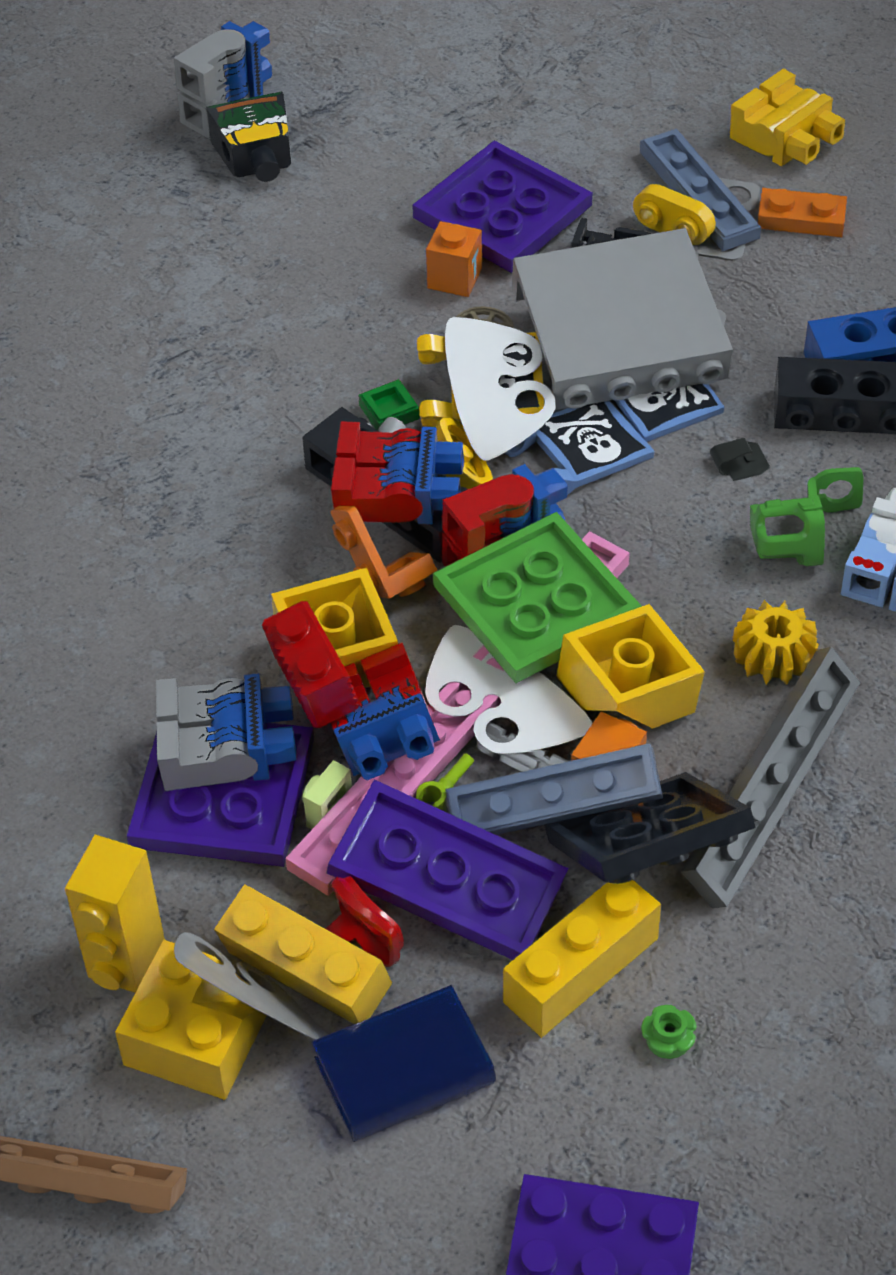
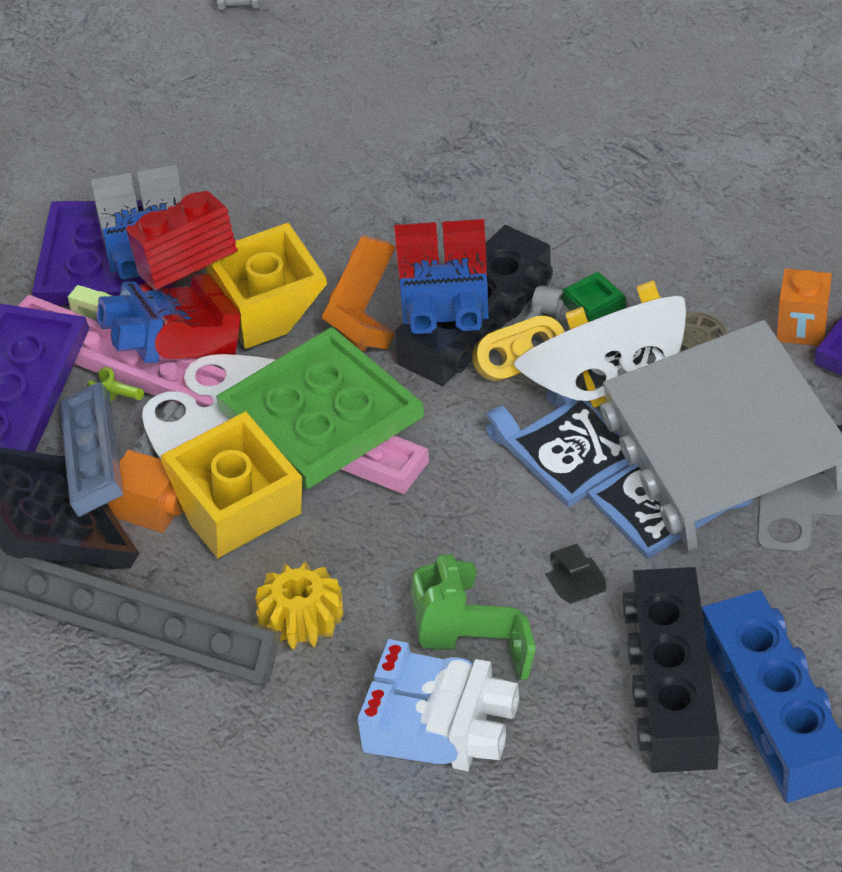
camera: 85 degrees right, 5 degrees down
(498, 510) = (419, 365): red hips -> none

